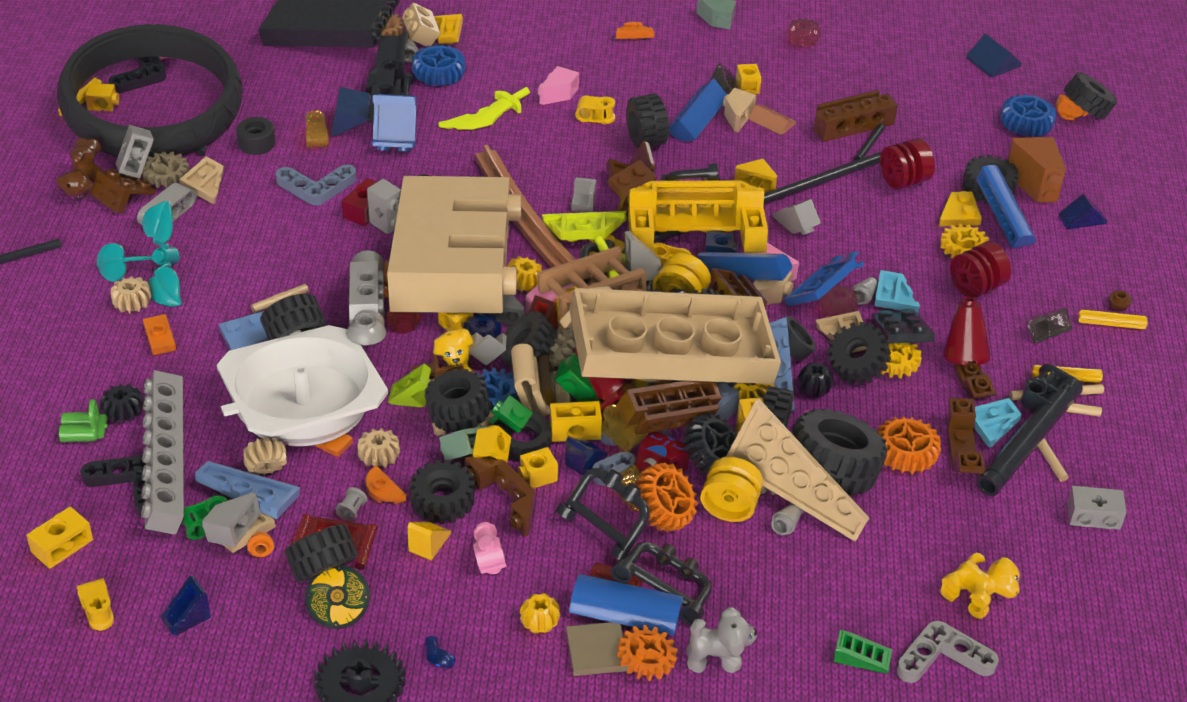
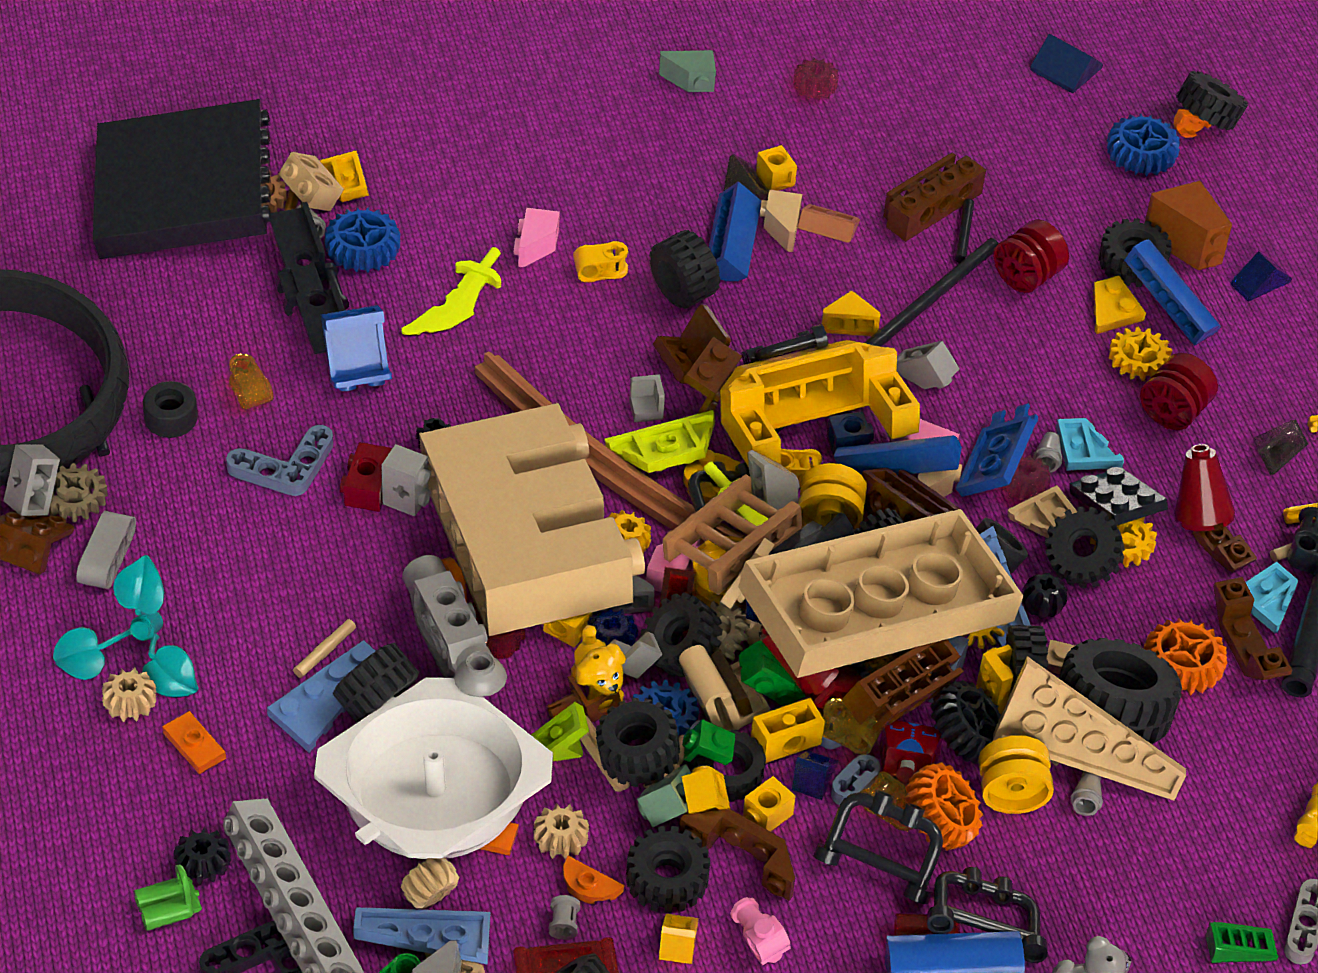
camera: 20 degrees left, 5 degrees up
(204, 179) = (135, 494): tan wing -> none
(350, 110) = (281, 342): dark blue slope -> none
(634, 30) = (595, 123): orange plate -> none

